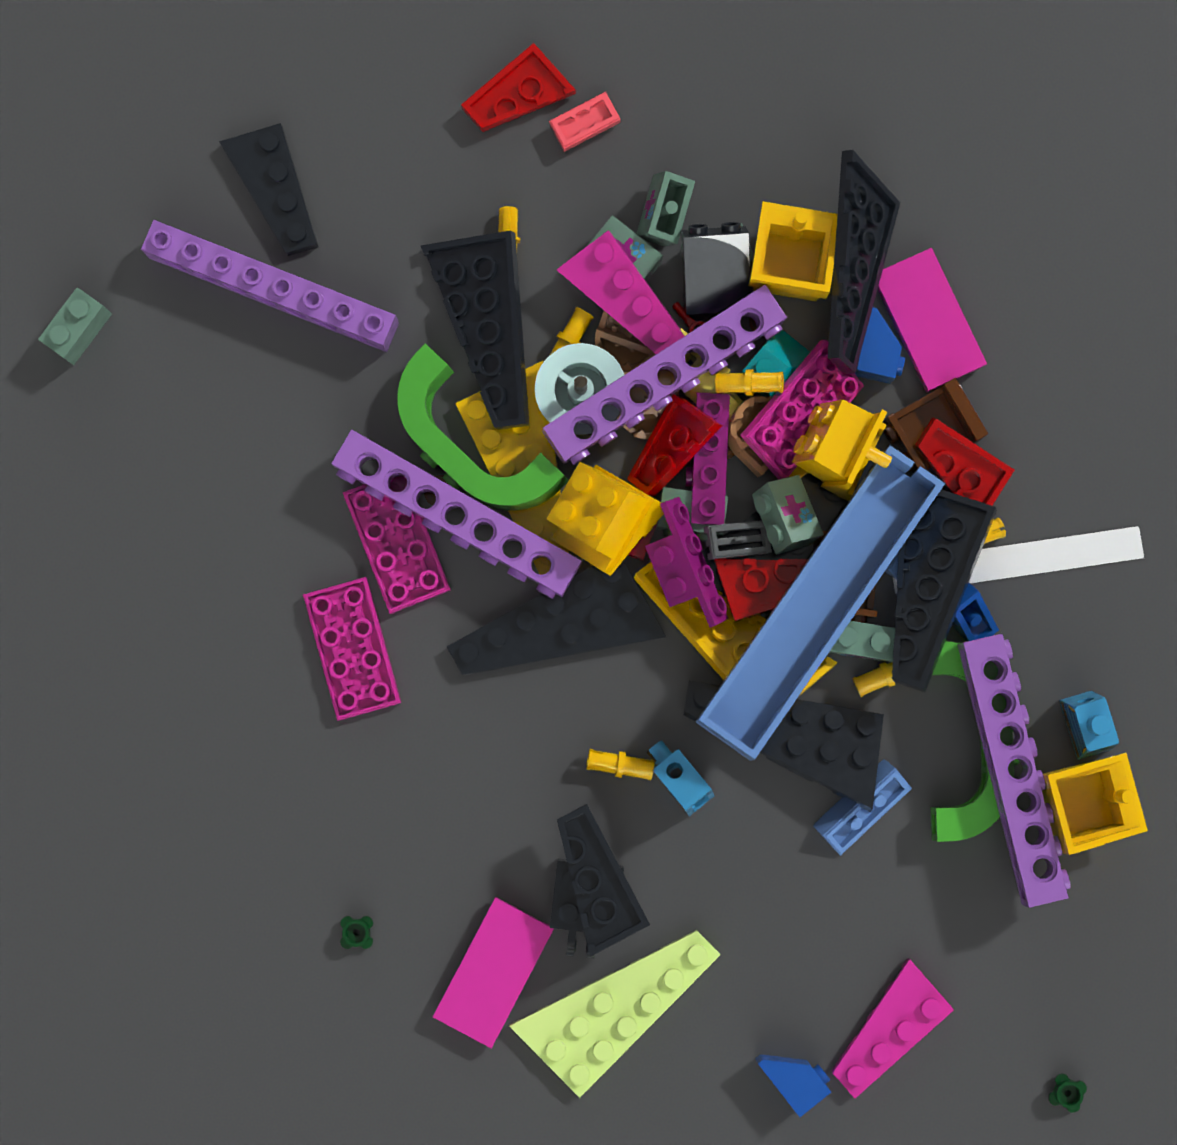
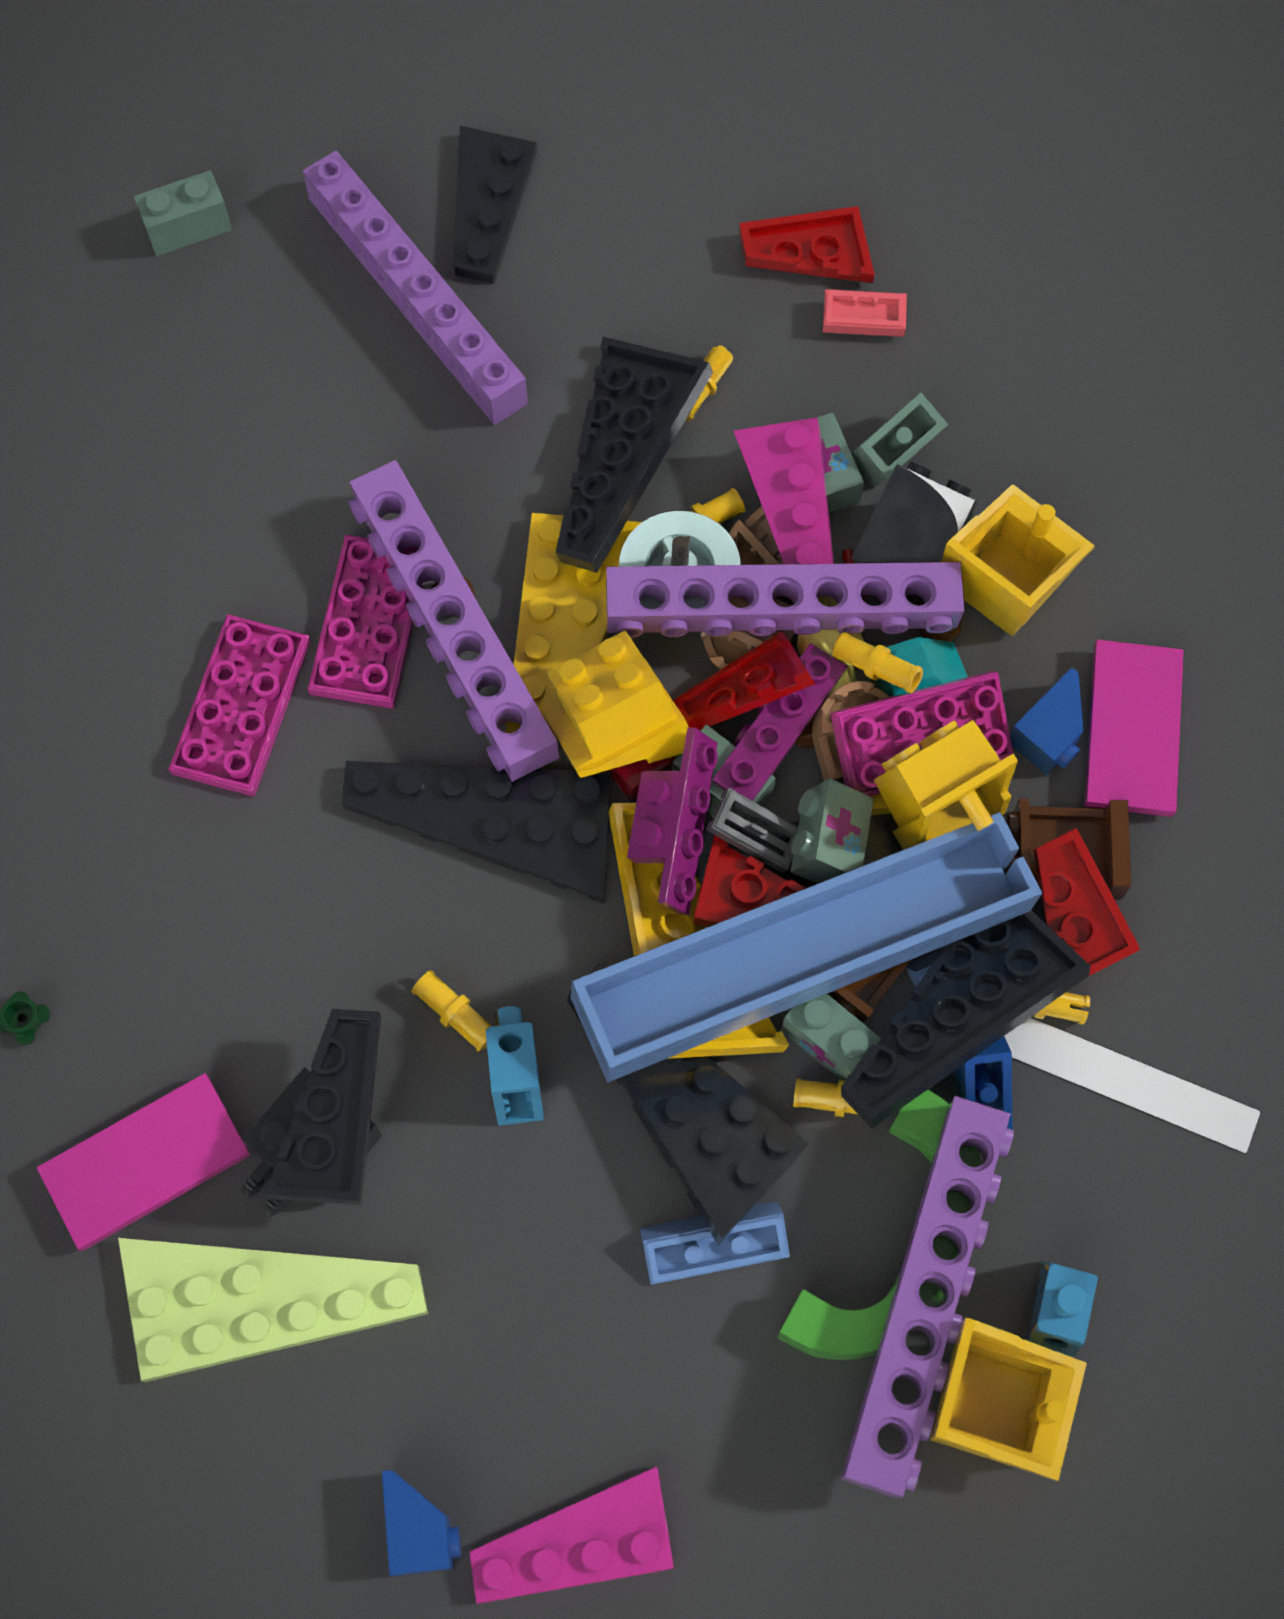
camera: 30 degrees right, 15 degrees down
(416, 392) = (490, 481): bright green arch -> none
(862, 241) = (1099, 593): black wing -> none

